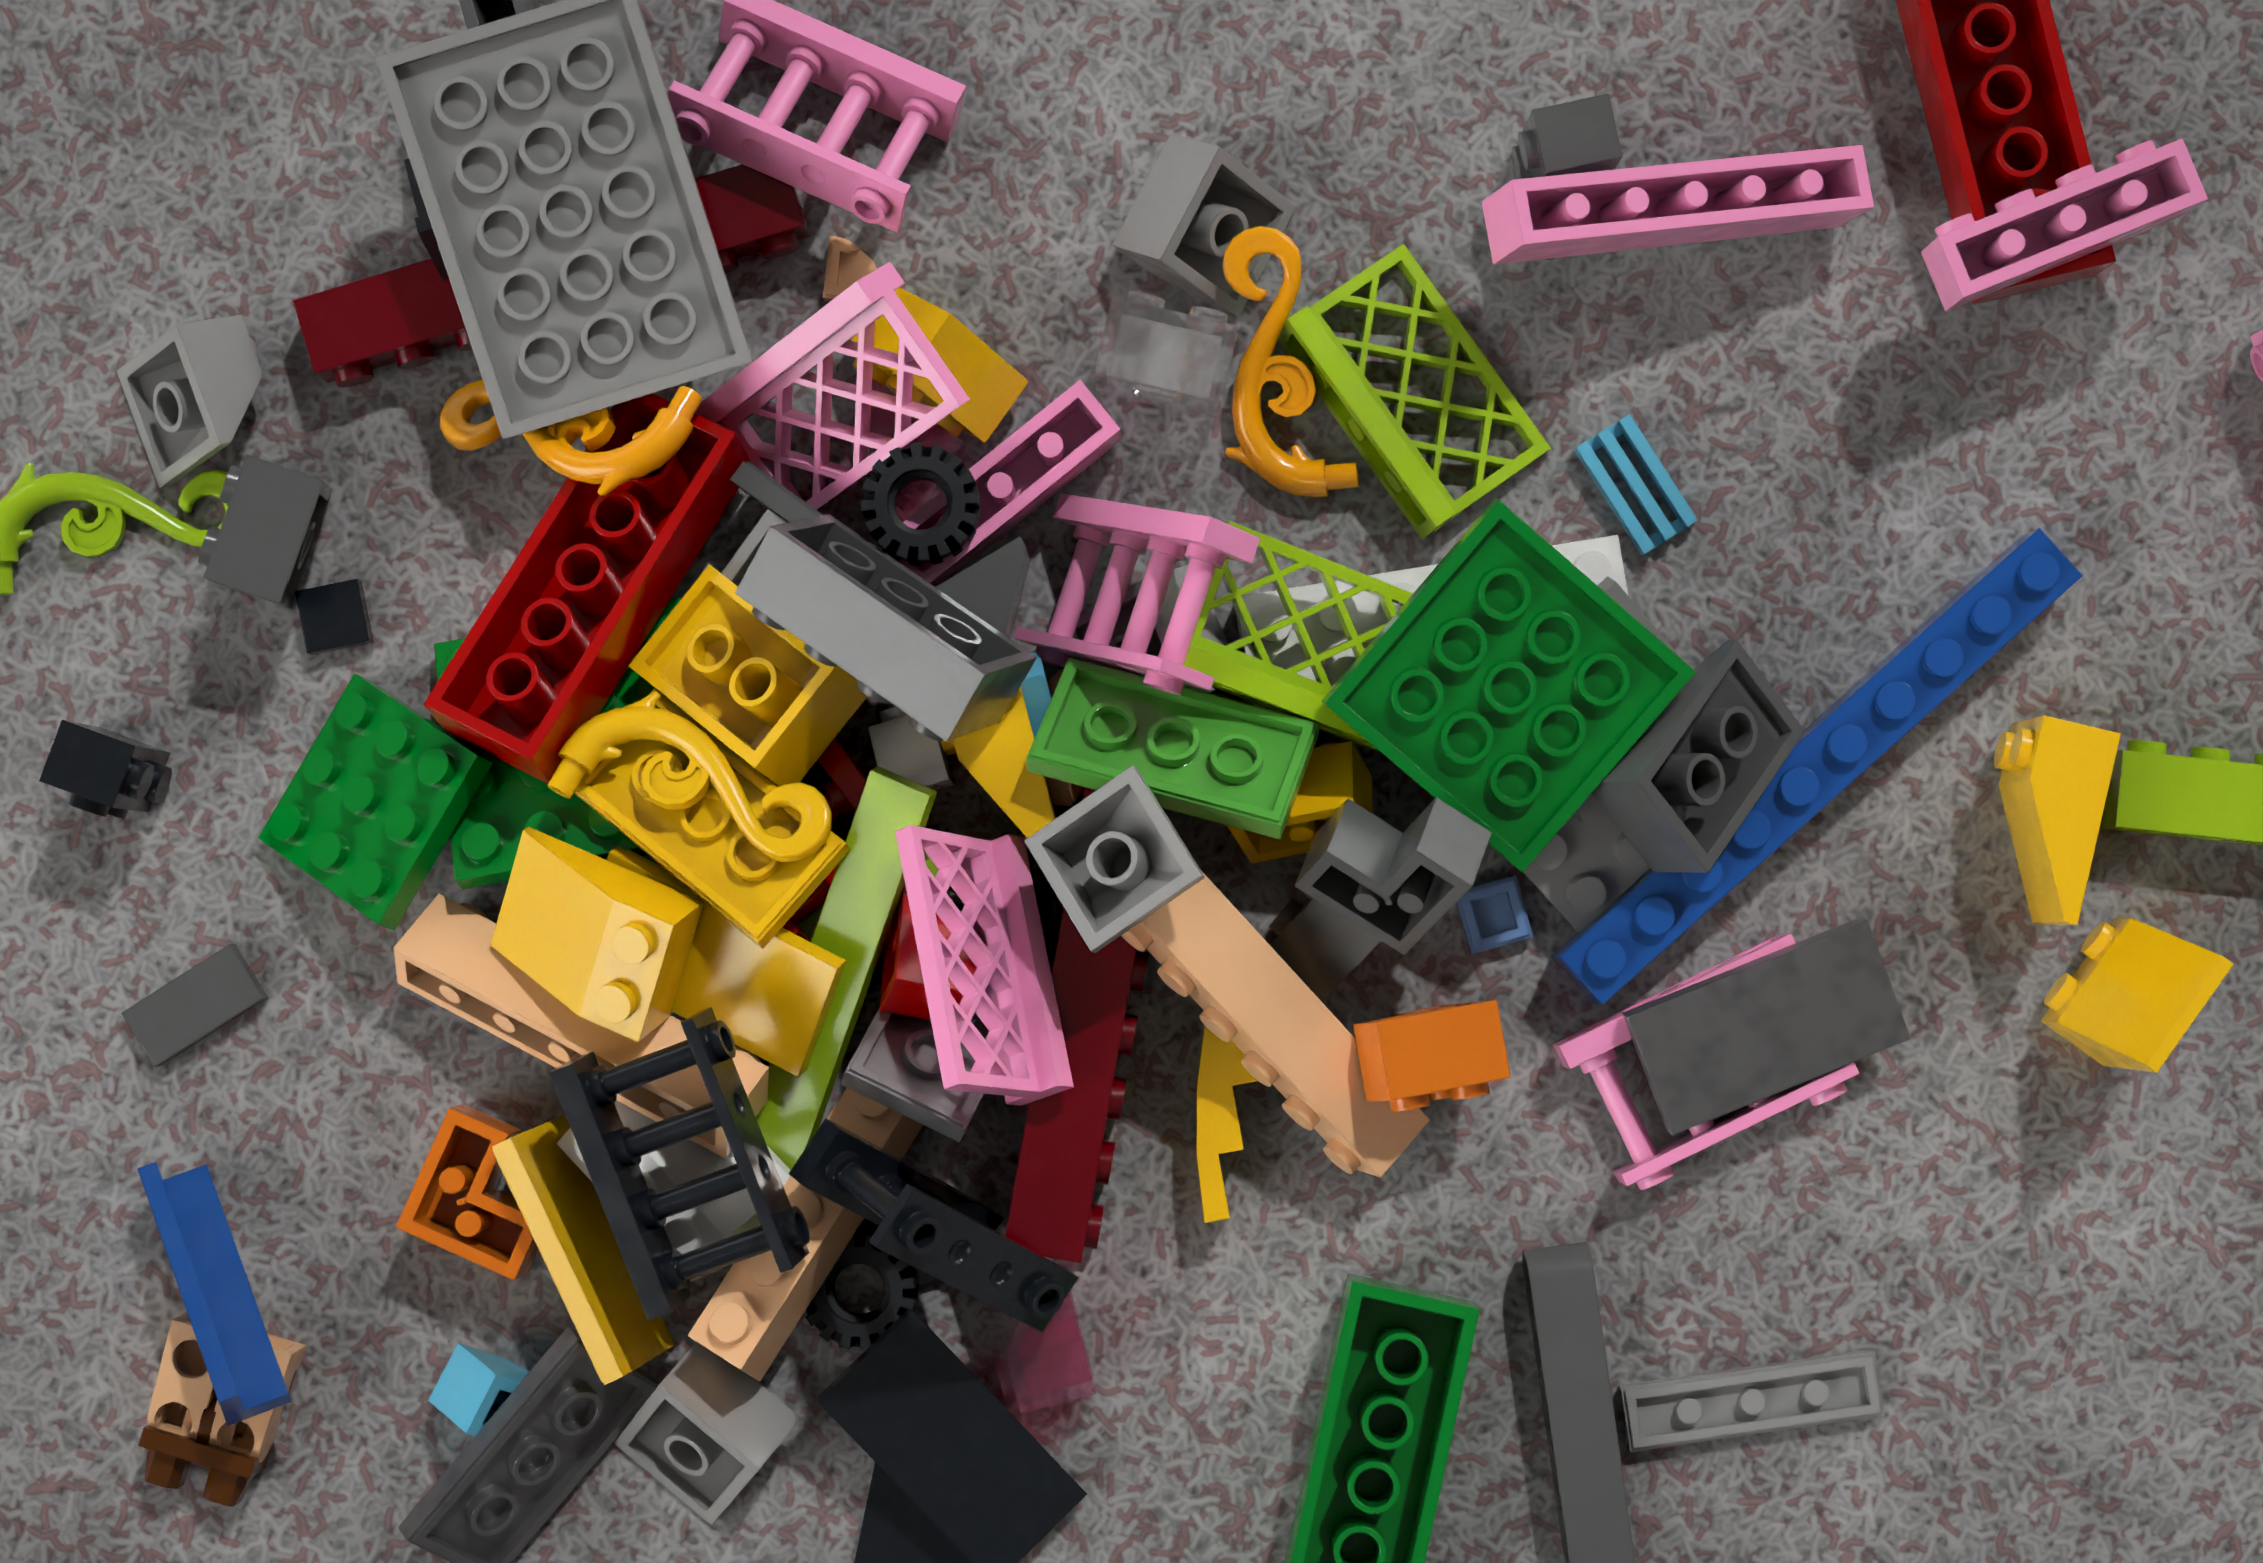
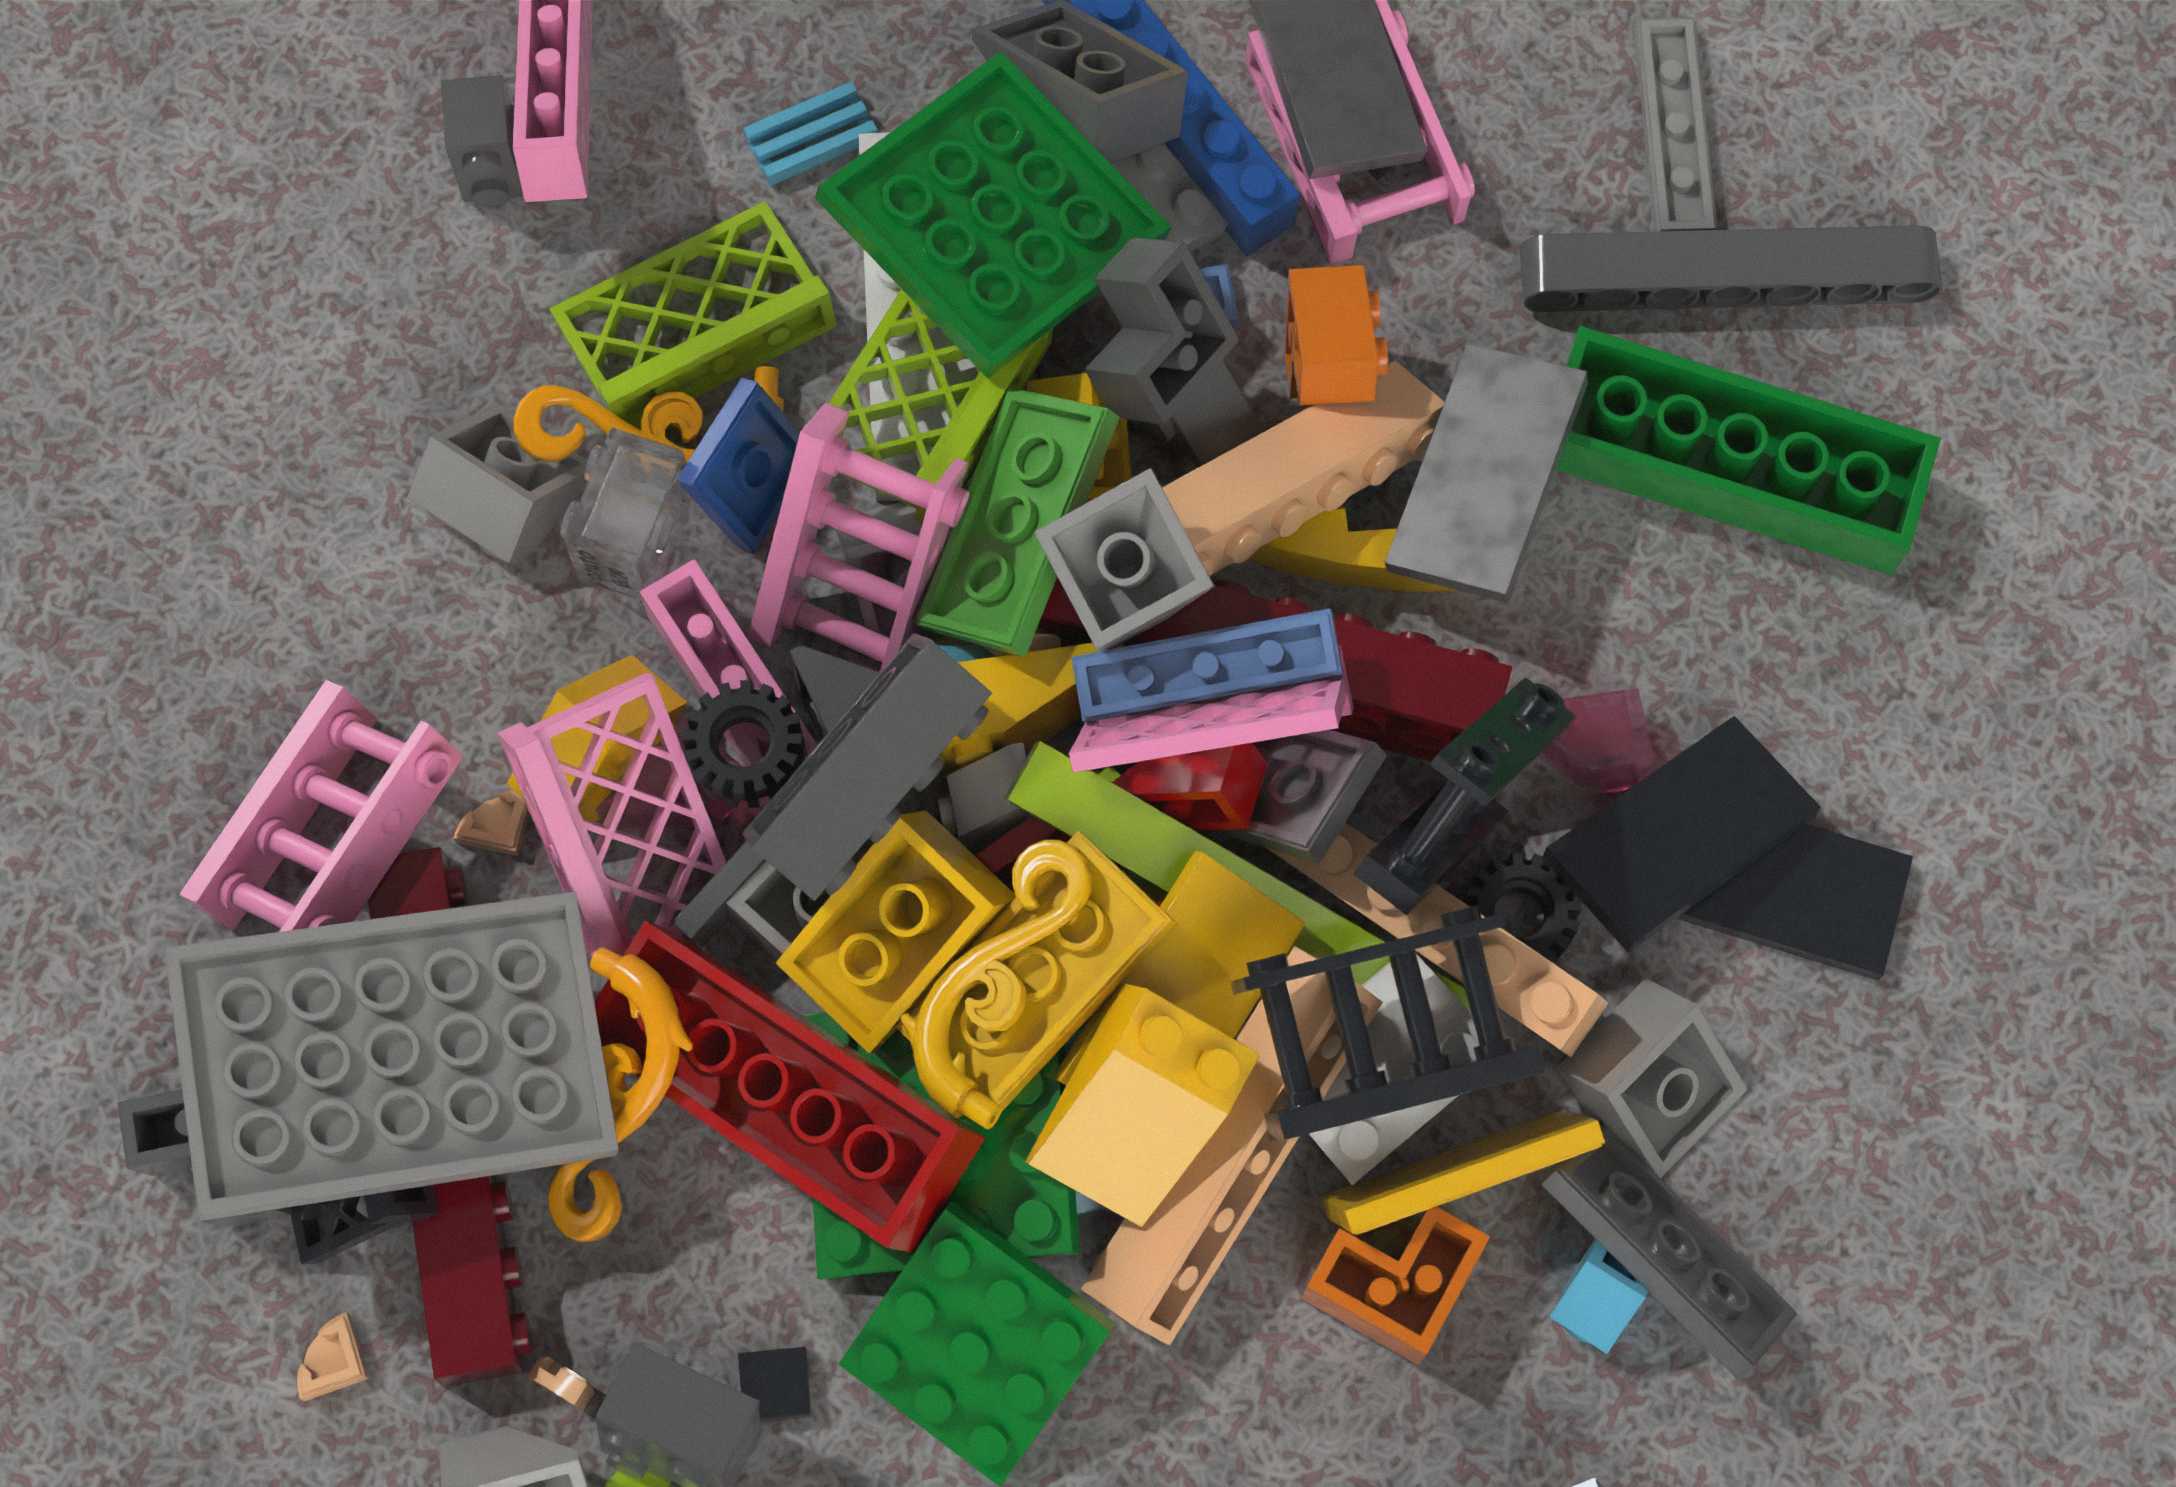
camera: 90 degrees left, 15 degrees down
(313, 421) = (562, 1382): none -> light nougat tile
(318, 203) = (331, 1360): none -> light nougat tile
(1034, 959) = (1207, 665): none -> medium blue tile
(1236, 468) = (743, 465): none -> blue tile
(1303, 1224) = (1487, 472): none -> flat silver tile

